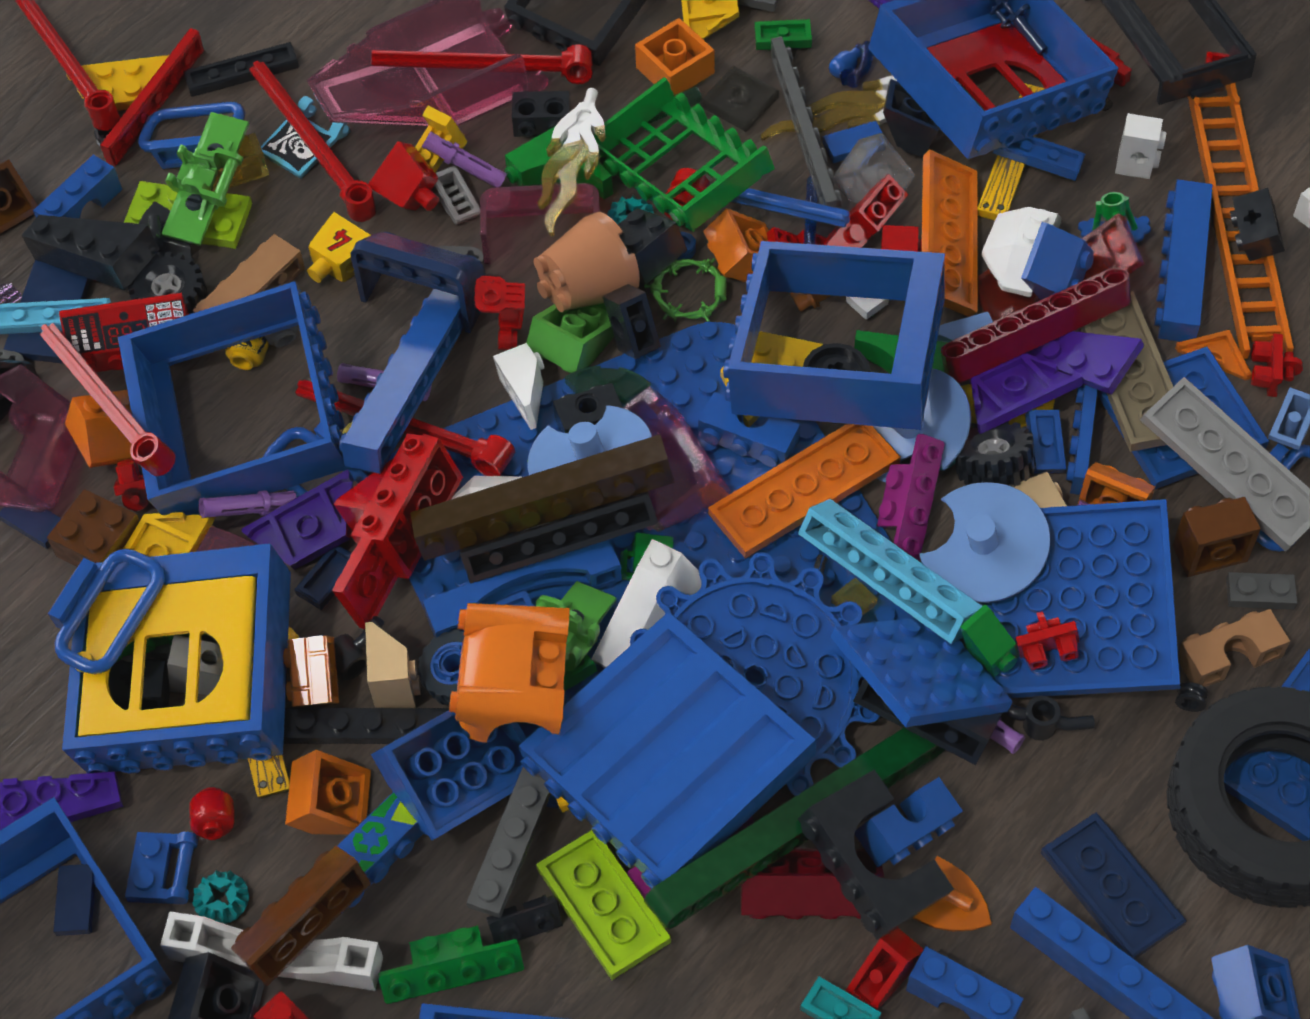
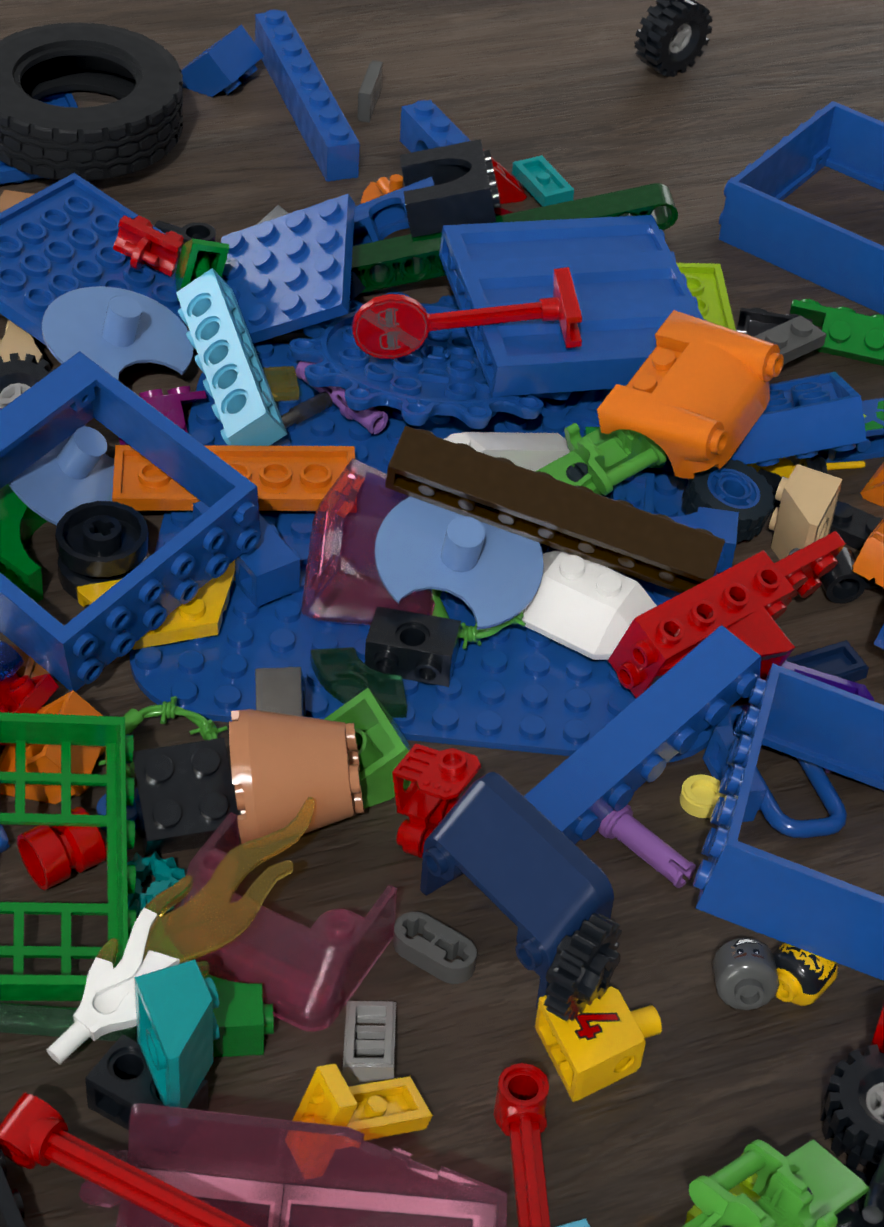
camera: 155 degrees left, 15 degrees down
(268, 267) = (759, 1049): medium nougat brick -> none
(349, 225) = (583, 967): none -> black gear
(406, 178) = (437, 1075): red torso -> none
(457, 156) = (320, 1051): medium lavender pin -> none
(487, 455) = (565, 664): red piece -> none
(522, 379) = (464, 713): white slope -> none
(532, 97) = (176, 1029): none -> teal slope
(762, 614) = (399, 324): none -> red piece
(1113, 886) = (253, 158): dark blue tile -> none

